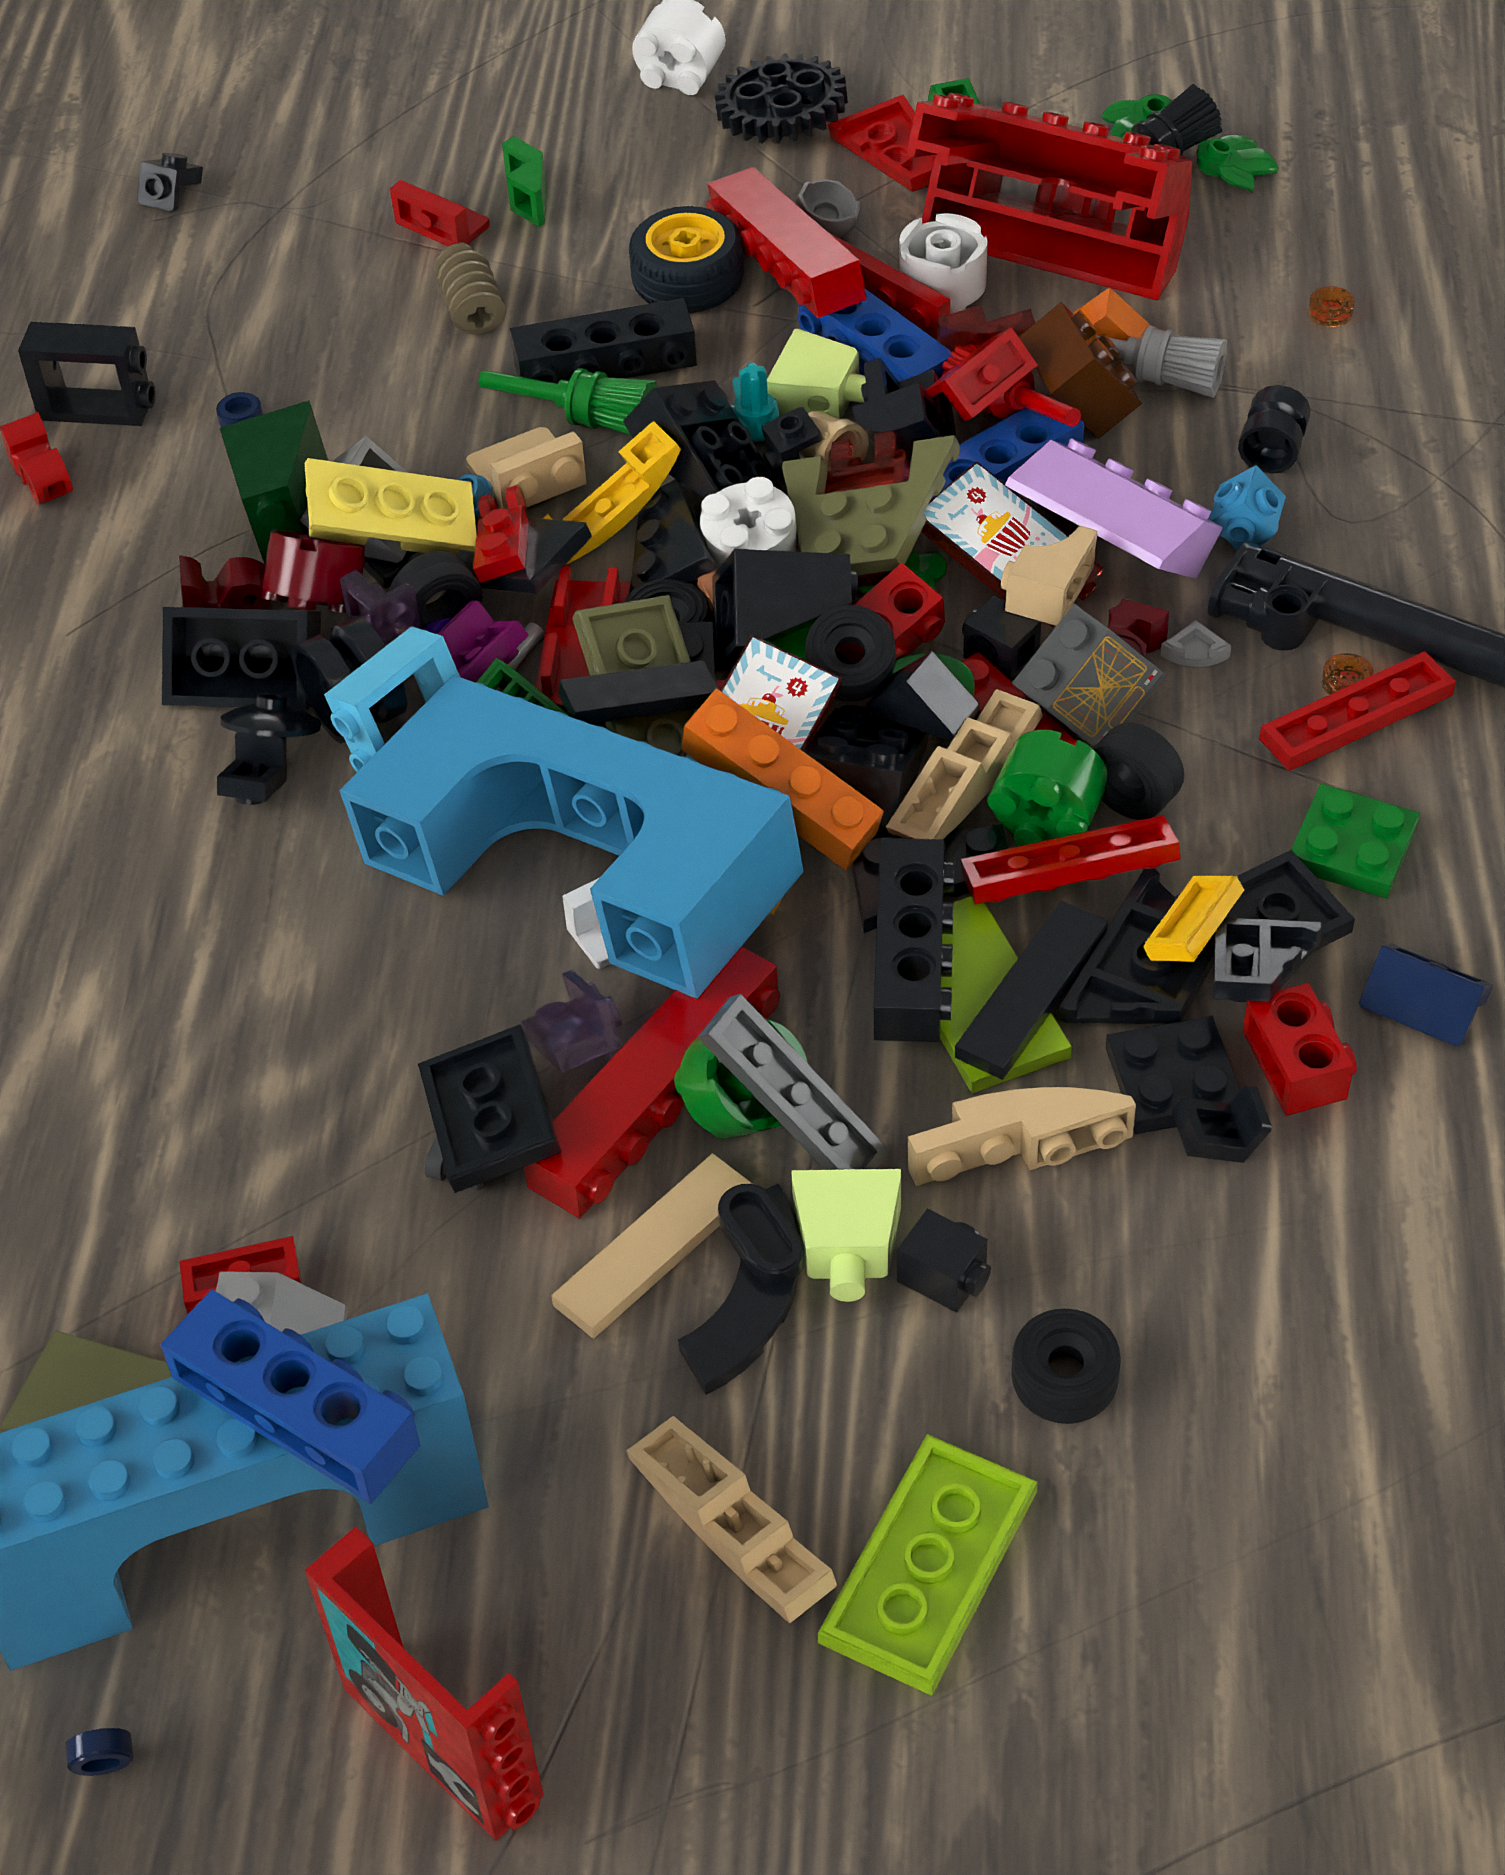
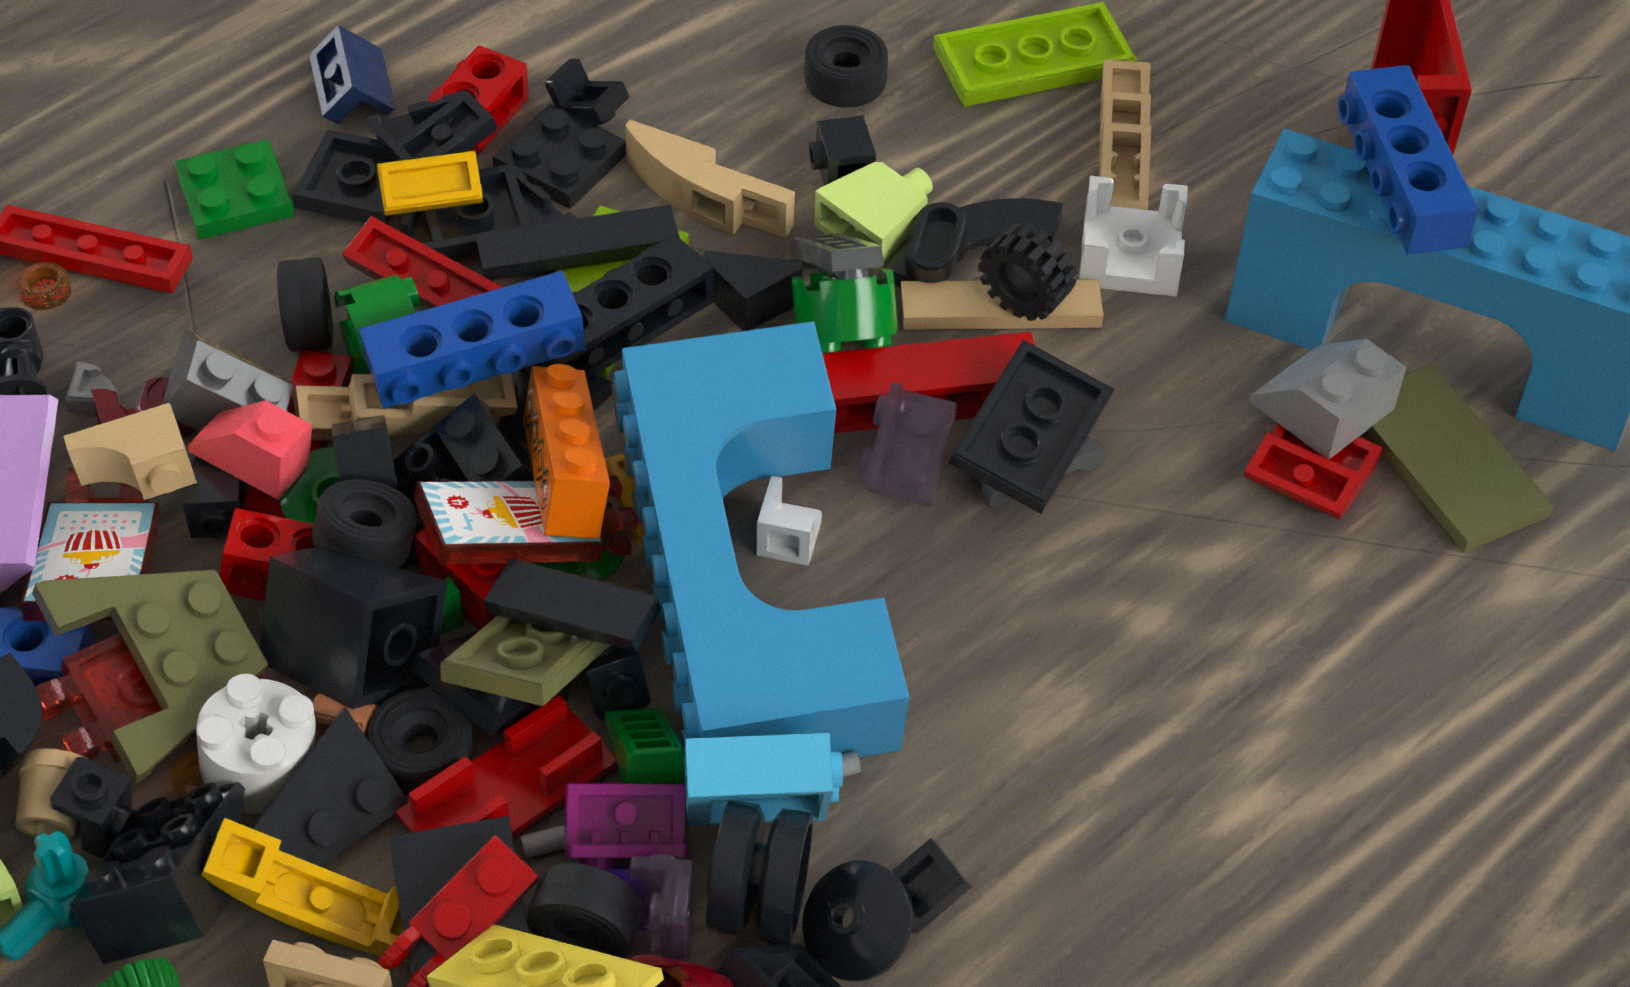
camera: 140 degrees left, 0 degrees up
(601, 1392) = (1133, 246): none -> white panel
(627, 1220) = (1027, 271): none -> black tyre
(867, 1064) = (752, 286): none -> black slope
(938, 783) = (473, 339): none -> blue brick
(989, 635) = (257, 446): none -> coral slope

